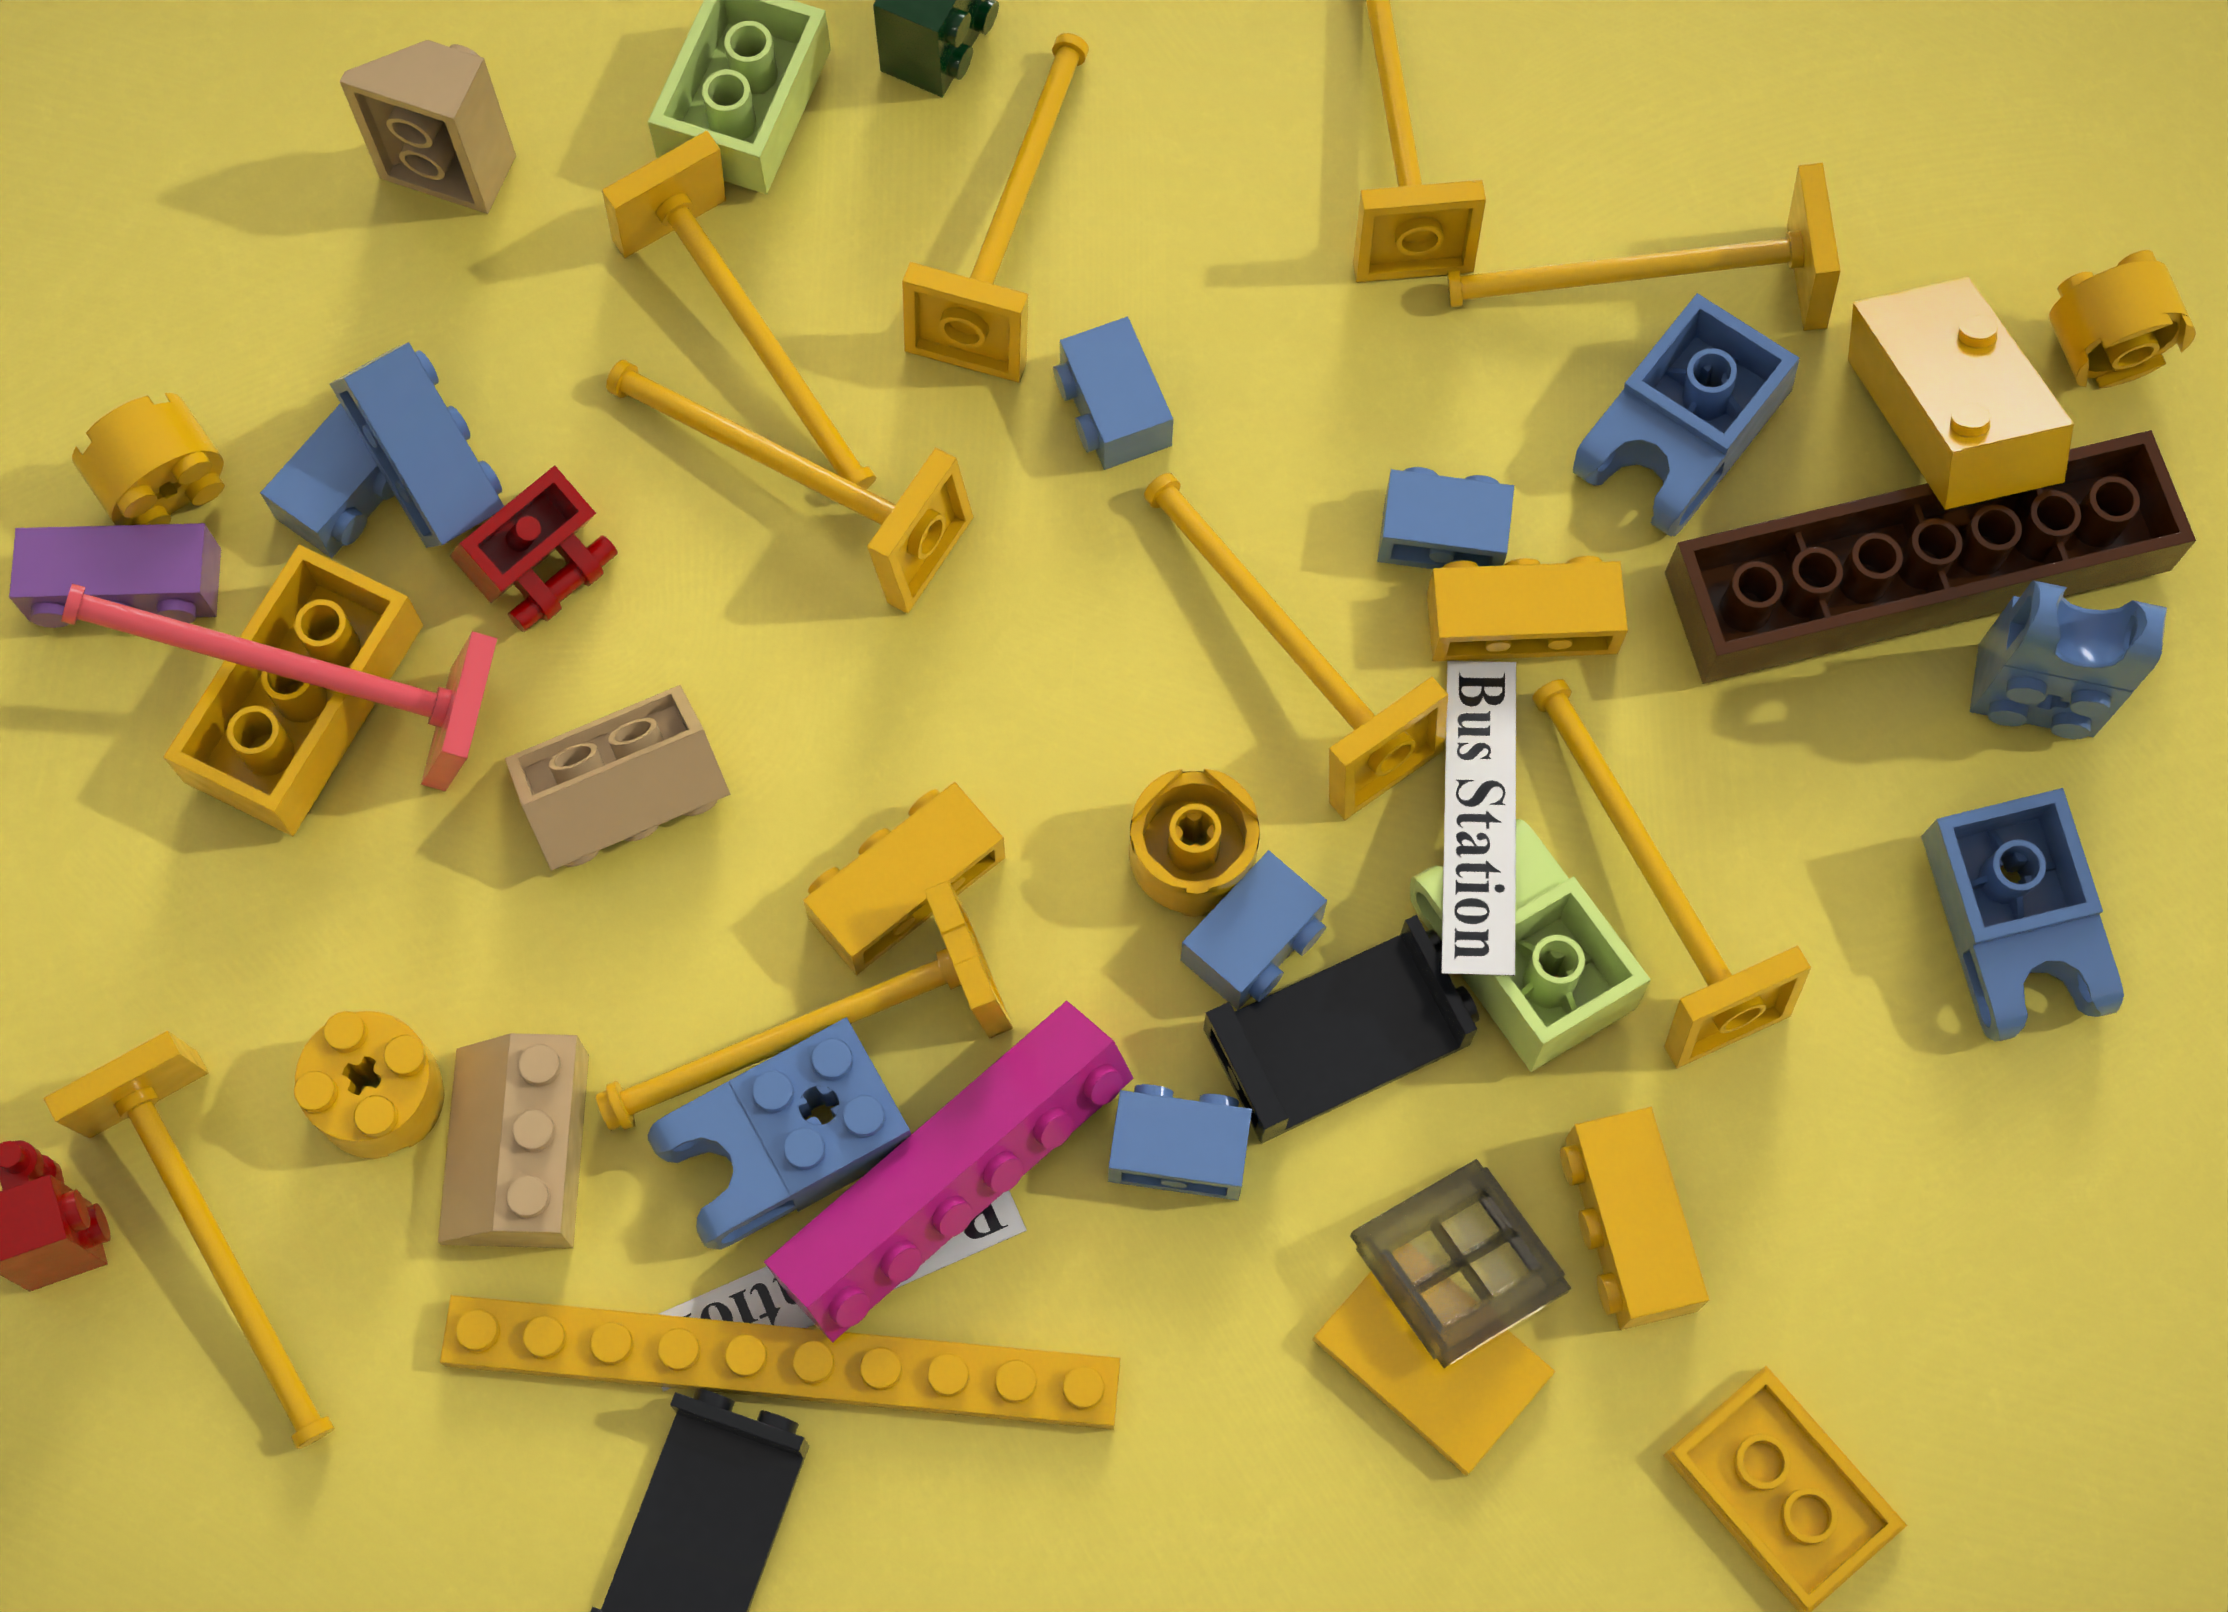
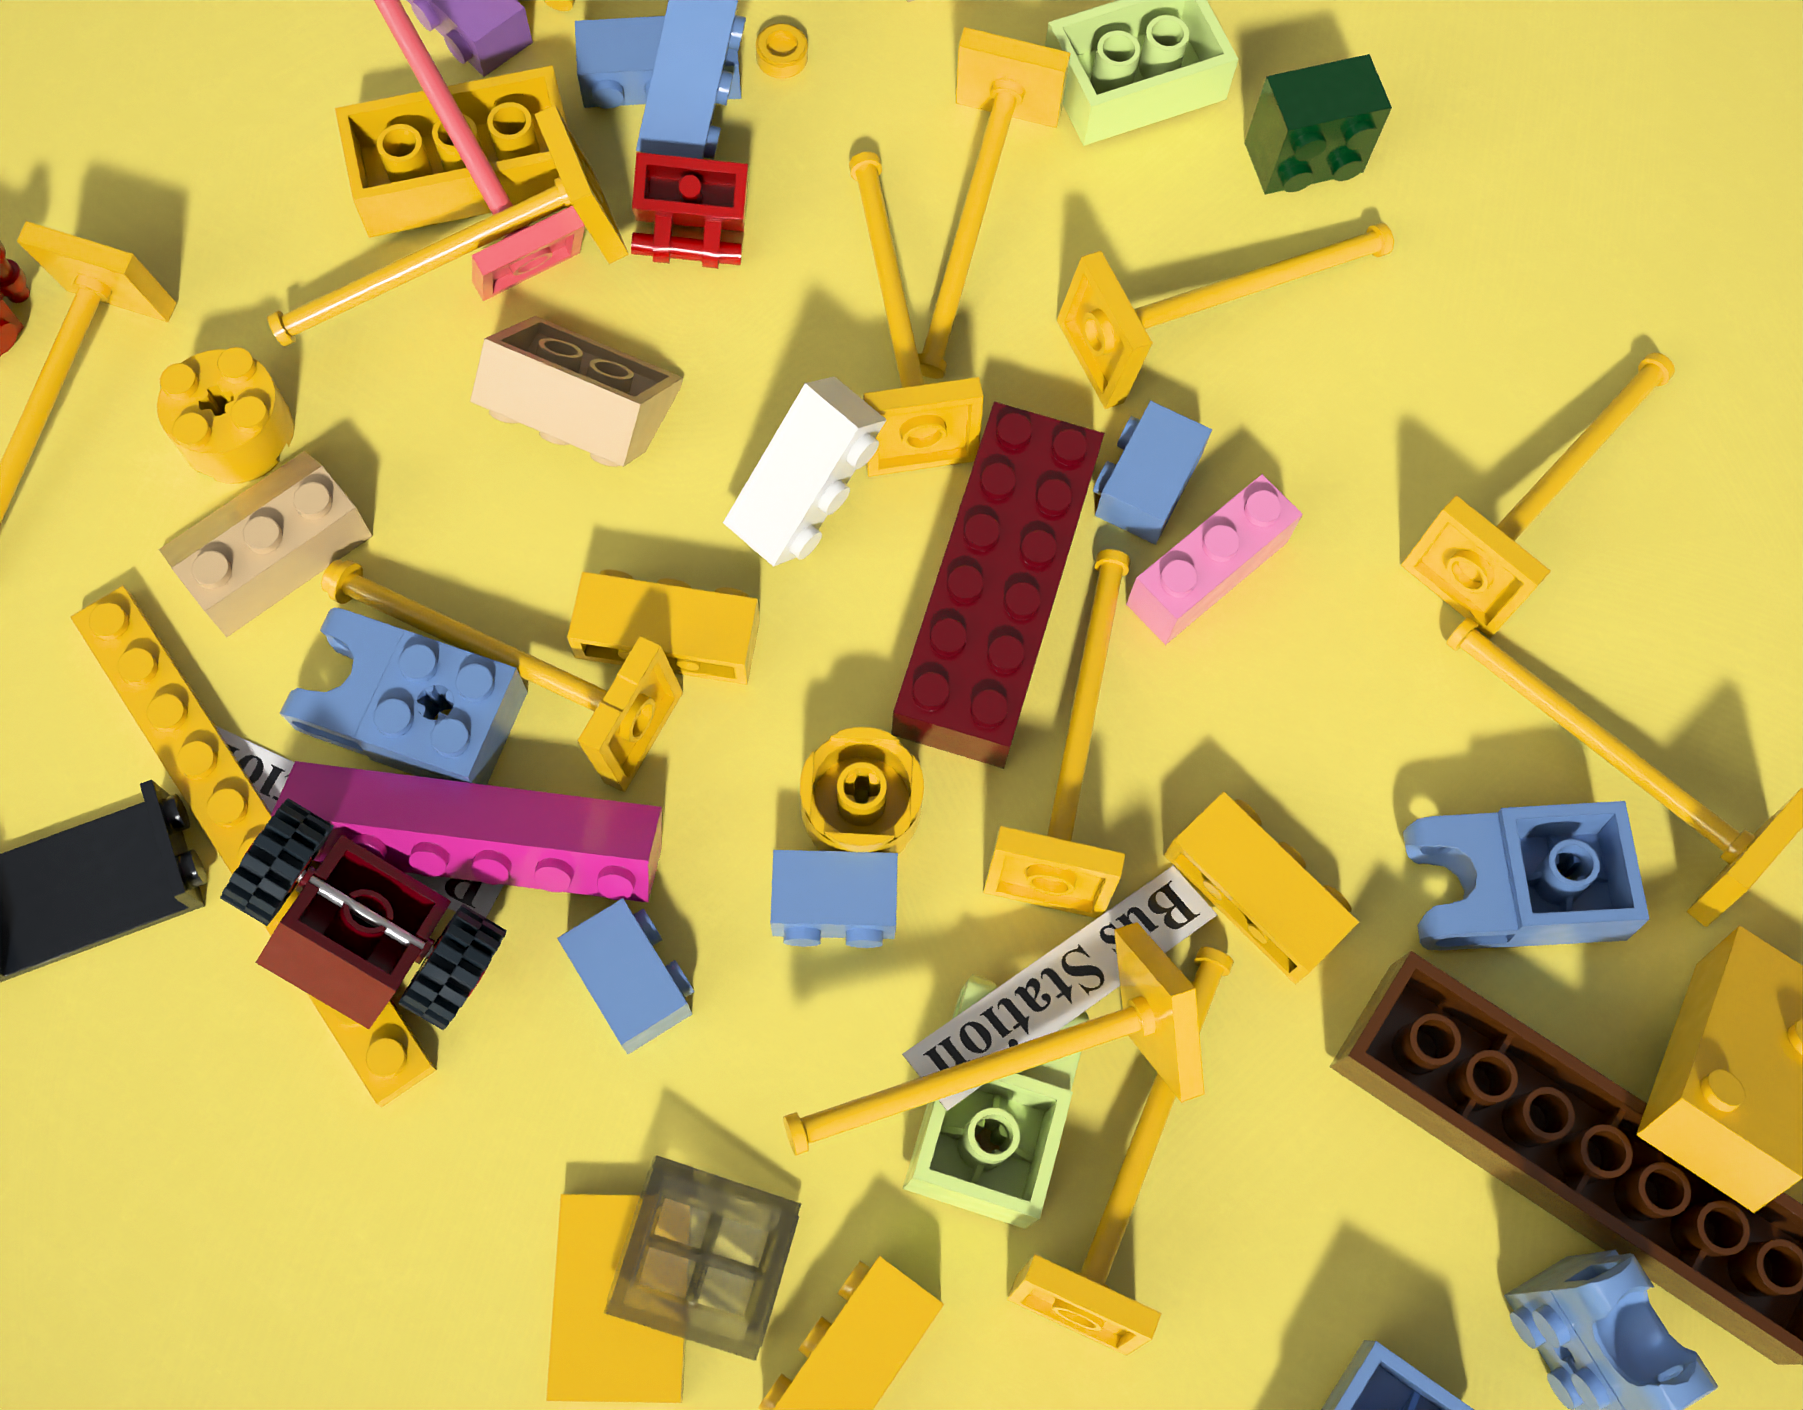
camera: 45 degrees right, 0 degrees up
(444, 347) = (781, 50): none -> yellow tile
(452, 618) = (574, 187): none -> yellow tile
(886, 651) = (805, 471): none -> white brick
(972, 1310) = (357, 924): none -> brick
(1106, 590) = (996, 585): none -> dark red brick
(1233, 412) = (1213, 559): none -> bright pink brick
(1342, 1031) = (805, 1016): black panel -> none
(1444, 519) = (1274, 771): medium blue brick -> none
(1564, 762) = (1156, 1015): none -> yellow tile

